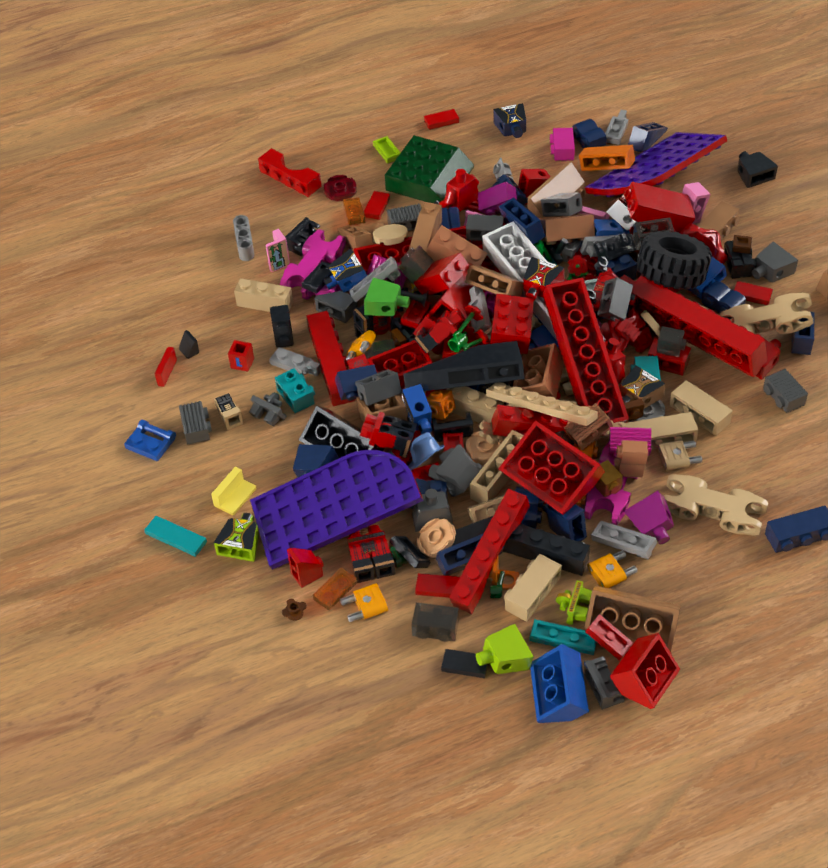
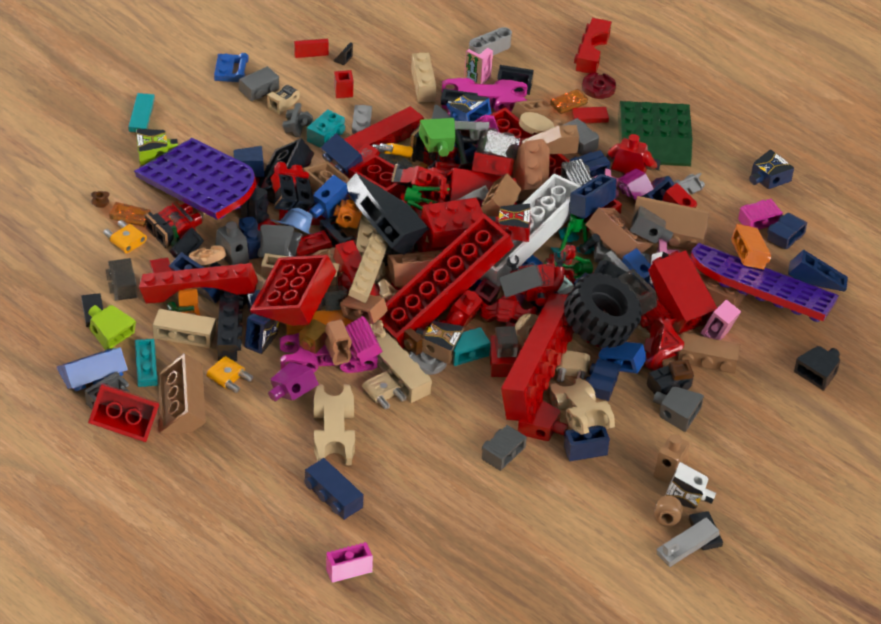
camera: 60 degrees right, 5 degrees down
(232, 492) = (200, 127): light yellow panel -> none
(281, 326) = (388, 95): black brick -> none
(304, 566) = (139, 186): red slope -> none
(378, 387) = (337, 164): dark grey hinge -> none
(386, 149) = (676, 96): lime tile -> none
(441, 119) = (742, 124): red tile -> none
(575, 611) = (172, 354): lime hips -> none
(609, 637) = (153, 382): red plate -> none
(617, 128) = (817, 248): light grey hinge -> none
(624, 539) = (262, 373): light grey hinge -> none
(705, 409) = (448, 392): tan brick -> none
(754, 292) = (631, 402): red tile -> none

